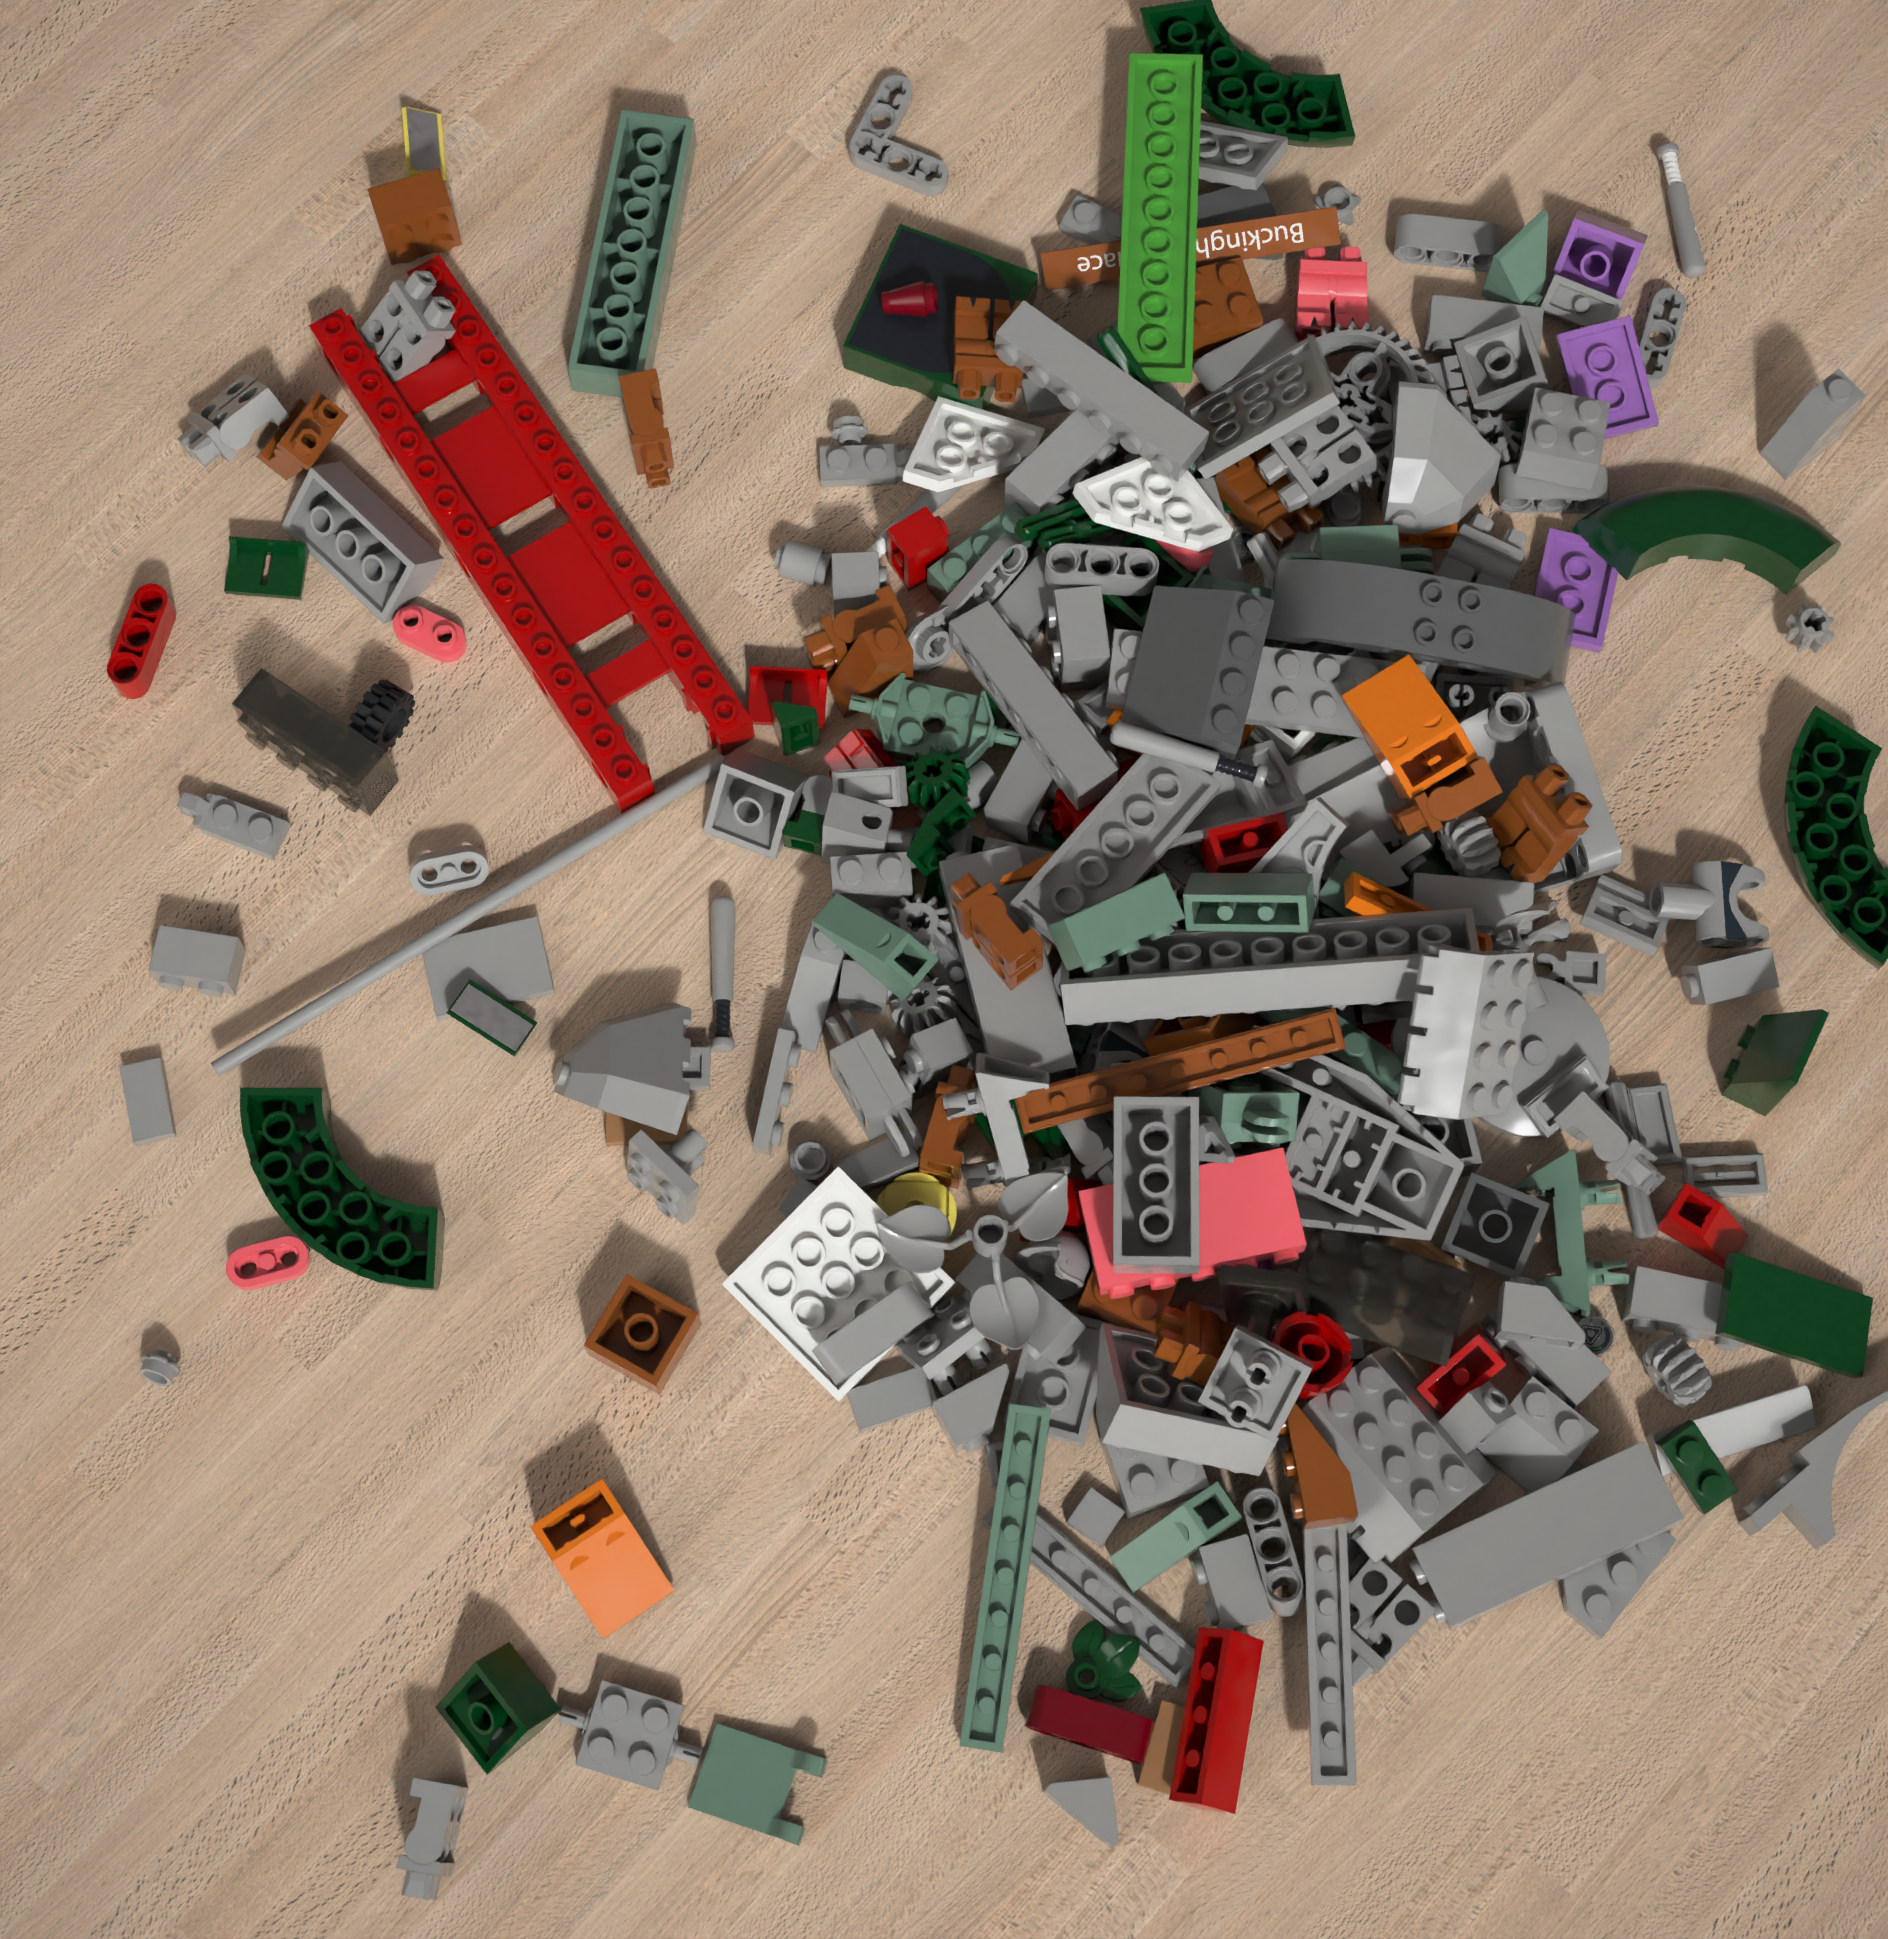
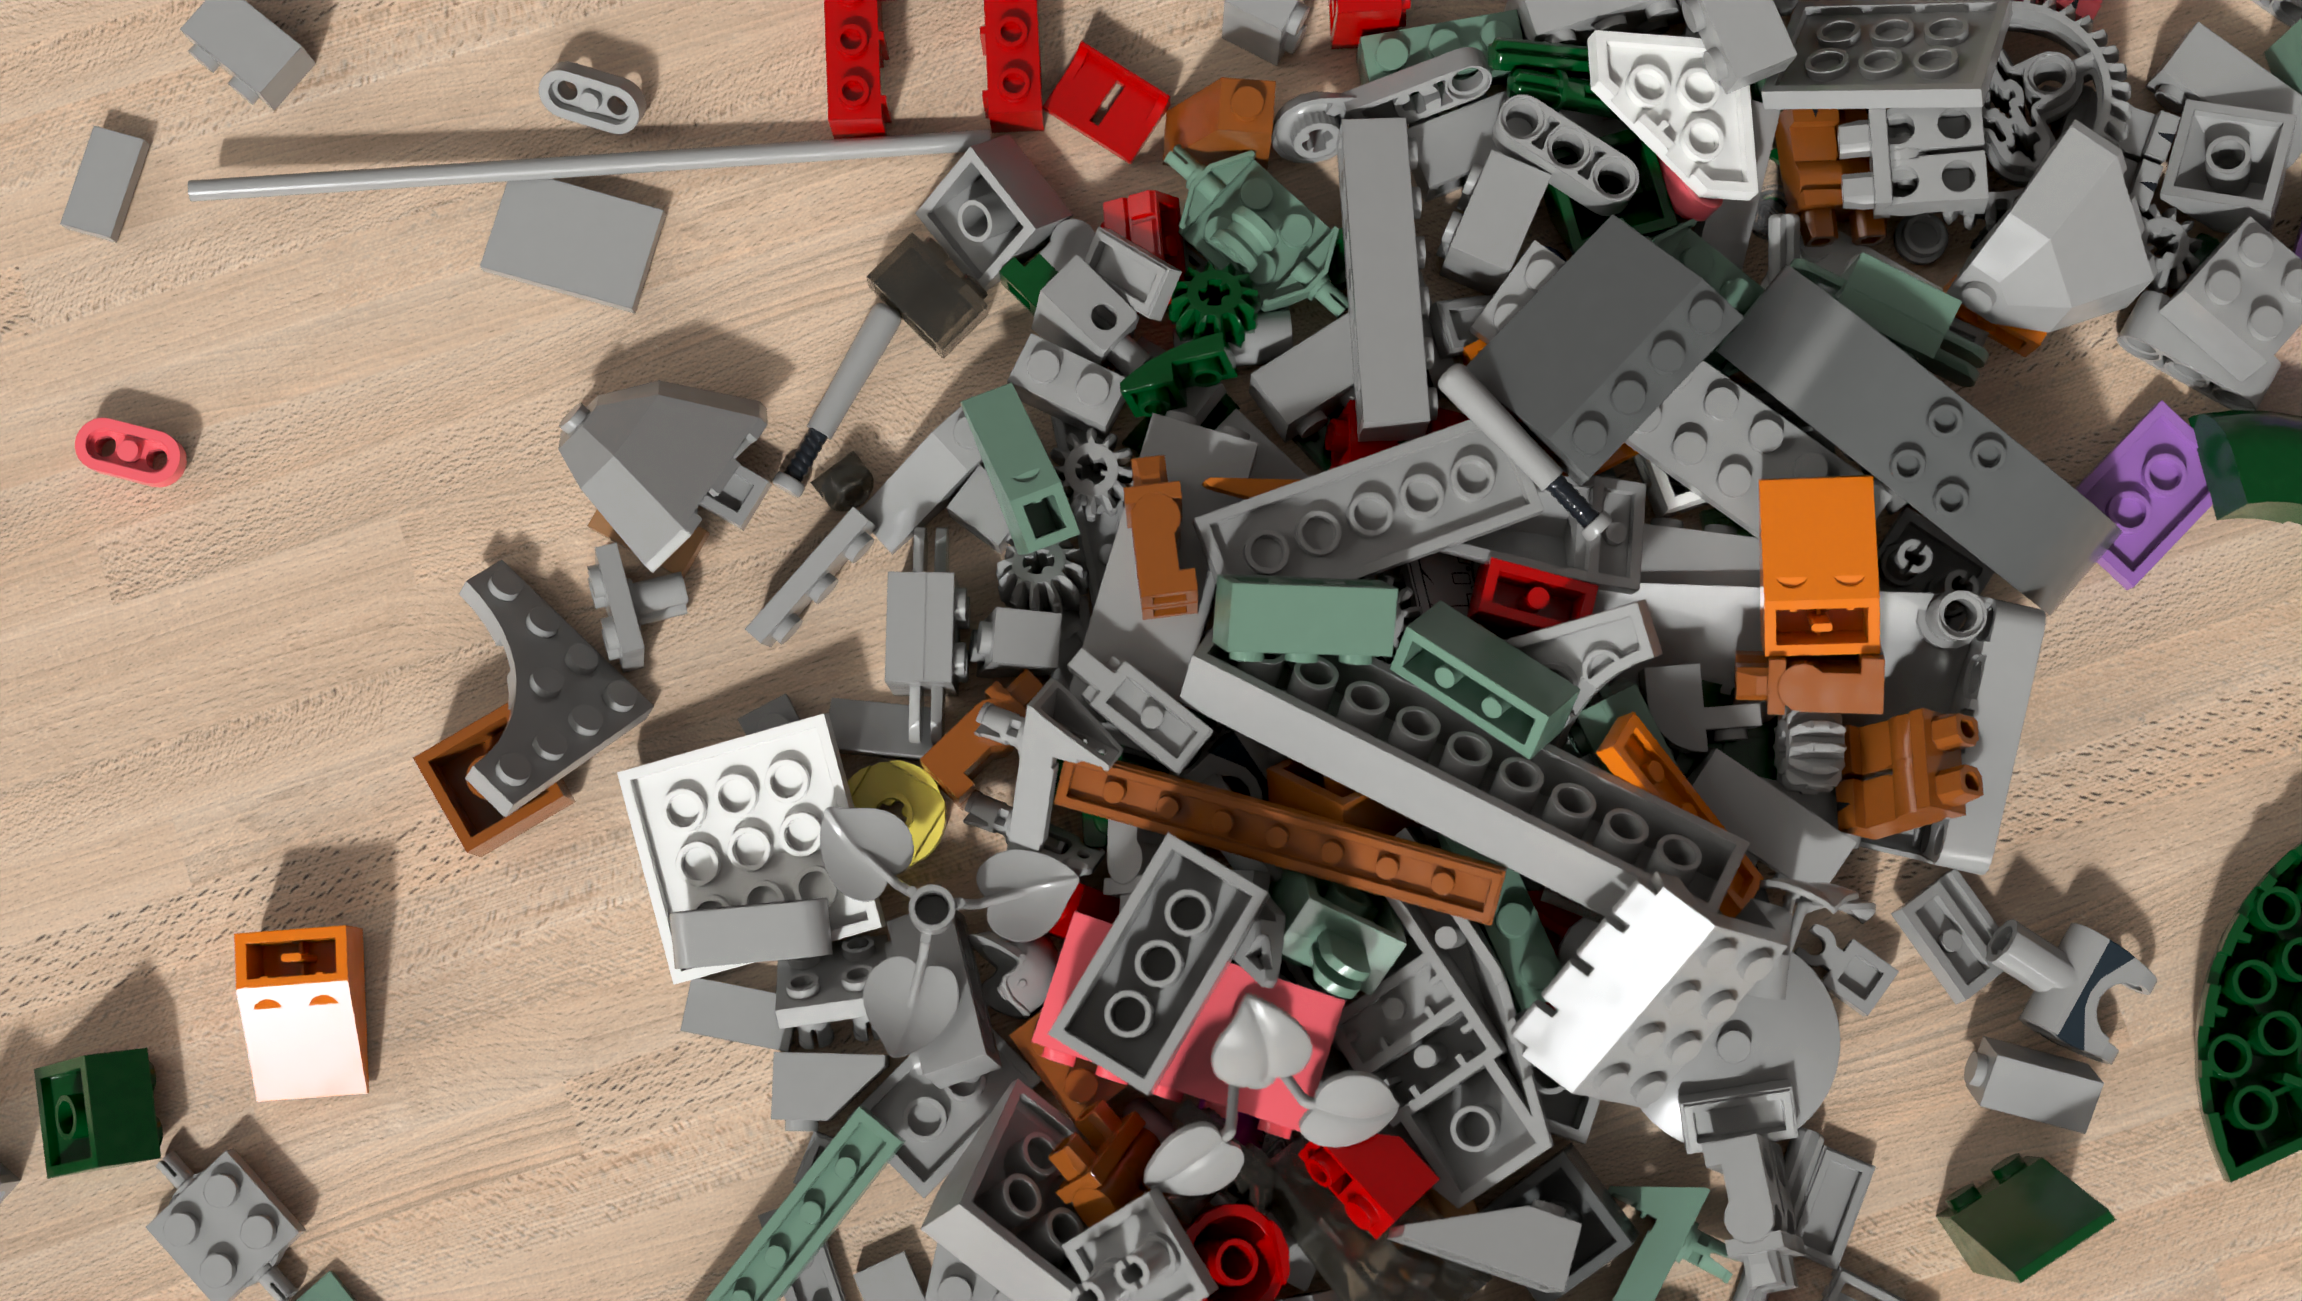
camera: 30 degrees right, 10 degrees up
(325, 1202) = (233, 419): dark green brick -> none
(492, 1017) = (538, 305): flat silver slope -> none
(659, 1254) = (560, 693): none -> light grey plate
(744, 874) = (929, 294): none -> clear smoke brick
(759, 1023) = (845, 483): none -> clear smoke plate
(795, 727) = (1088, 147): dark green slope -> none
(810, 1160) = (809, 681): light grey plate -> none
(837, 636) = (1195, 65): dark orange hips -> none
(931, 727) = (1244, 240): none -> sand green wheel
(1044, 1043) = (1141, 710): none -> light grey hinge
(1254, 1181) = (1252, 1053): none -> light grey plant
(1361, 1249) = (1371, 1178): none -> red slope
(1477, 1242) = (1518, 1244): none -> light grey slope
(1483, 557) = (2052, 393): light grey hips -> none

